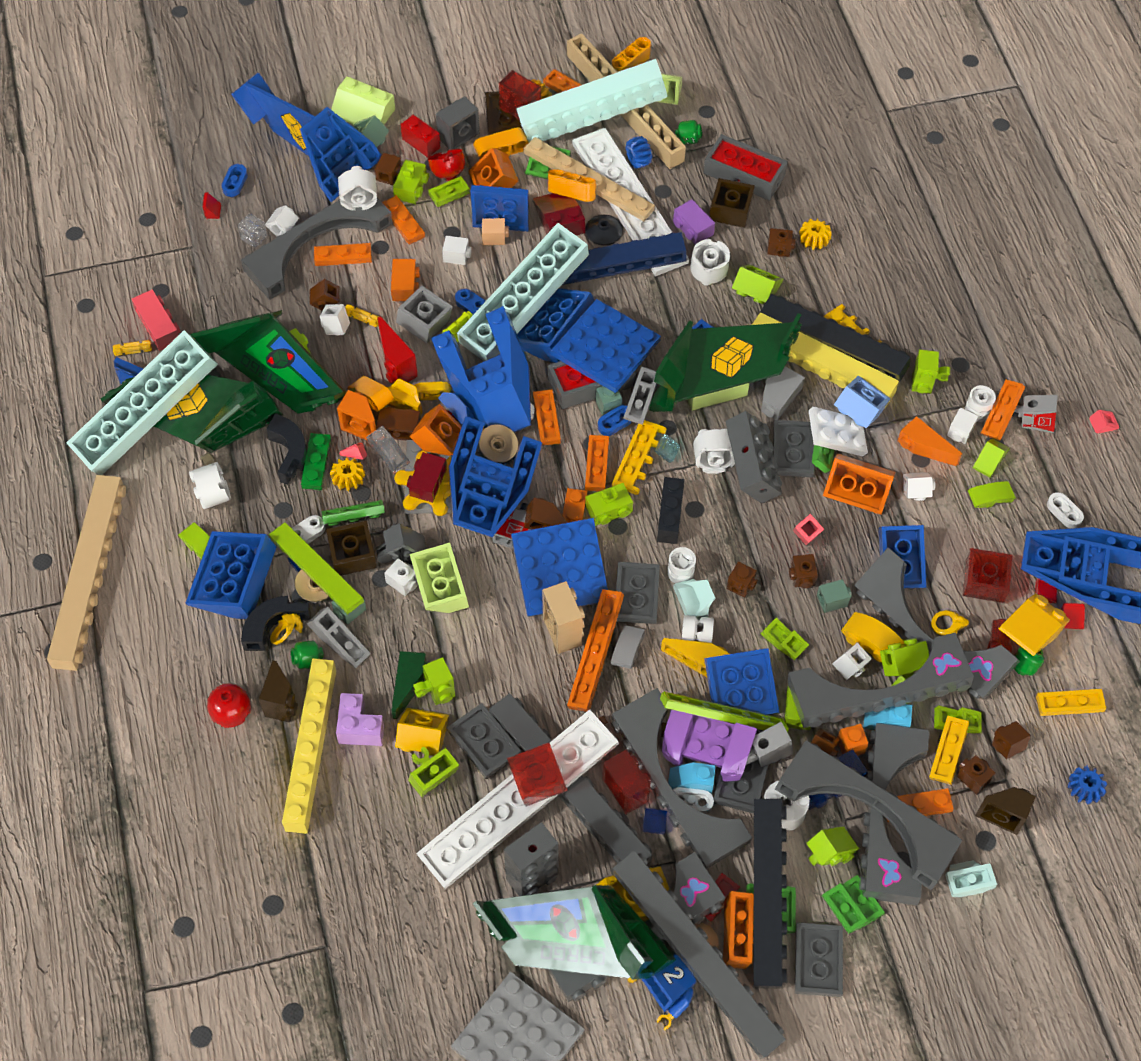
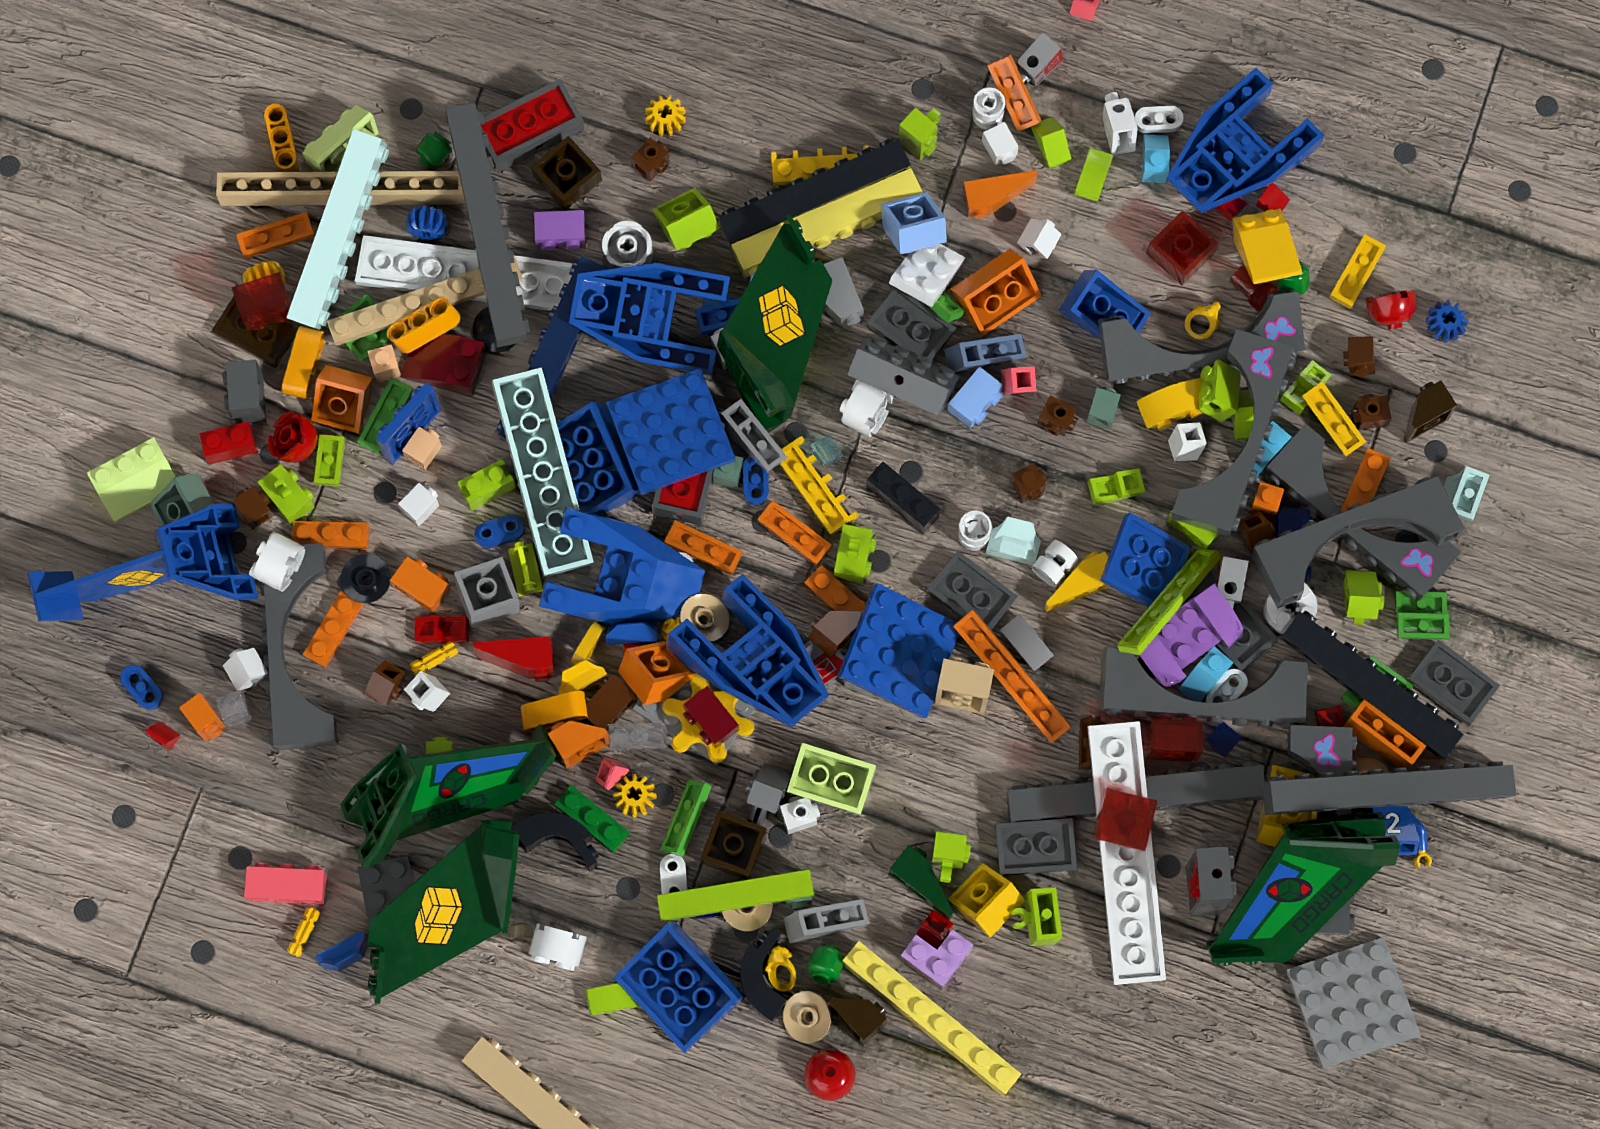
camera: 55 degrees left, 15 degrees up
(142, 403) = (415, 961): light aqua brick -> none
(232, 212) = (202, 717): none -> orange brick
(258, 663) = (797, 1017): none -> tan dish
(380, 707) = (934, 929): none -> red slope
(382, 306) = (441, 629): none -> red slope
(386, 244) = (365, 566): none -> black dish
(491, 274) = (486, 485): none -> lime brick
(533, 181) = (384, 363): none -> light nougat brick
(658, 174) = (486, 224): none -> dark grey brick
(670, 277) = (635, 309): none -> blue wedge
(775, 513) = (975, 398): none -> light blue brick
(811, 500) = (985, 353): none -> sand blue slope
(1035, 520) = (1155, 158): none -> medium azure slope
(1043, 478) = (1119, 124): none -> white torso
(1063, 739) = (1392, 308): none -> red cylinder

